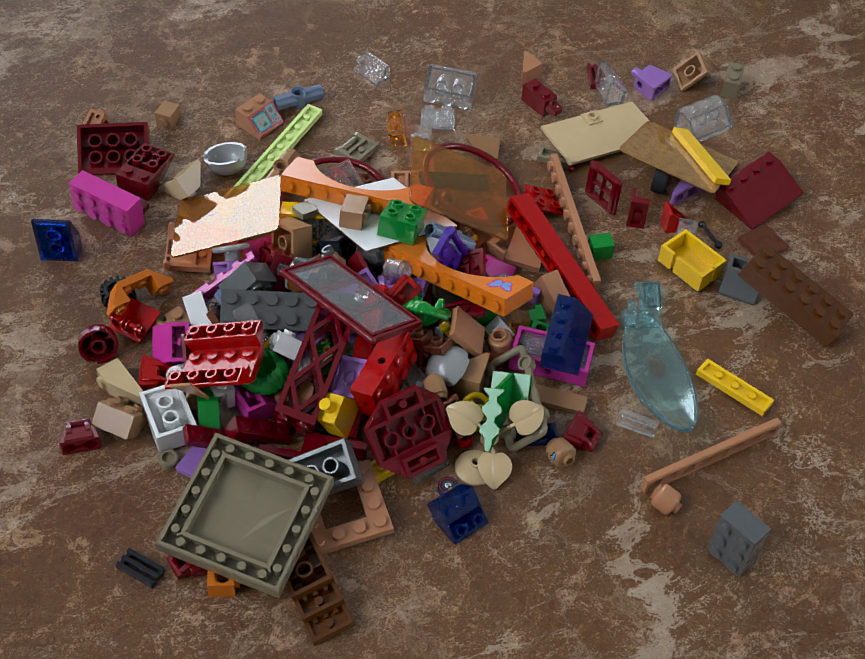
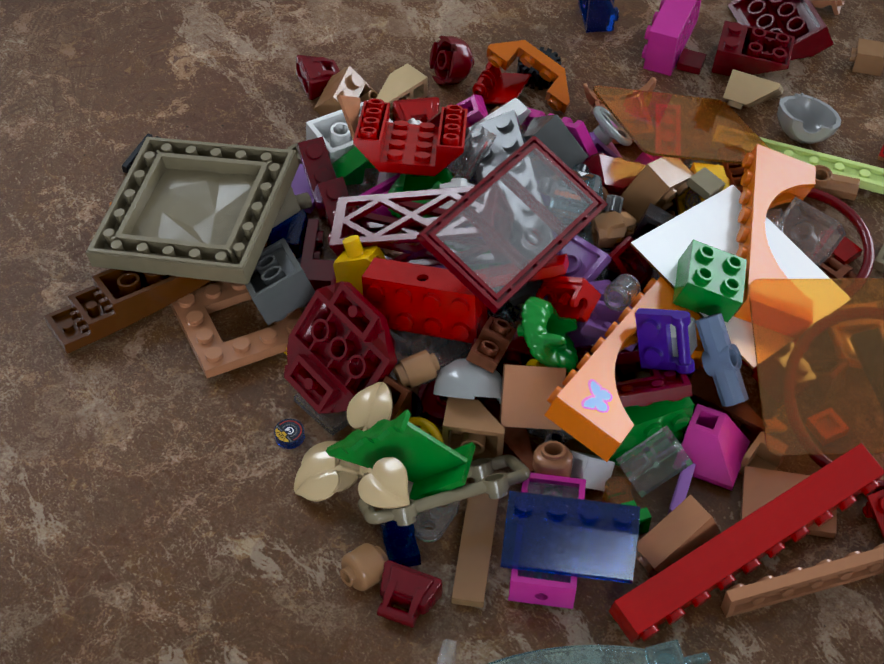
camera: 85 degrees right, 0 degrees up
(354, 212) = (713, 226): medium nougat brick -> none
(458, 512) = (241, 444): clear blue slope -> none
(601, 246) = (825, 607): green brick -> none

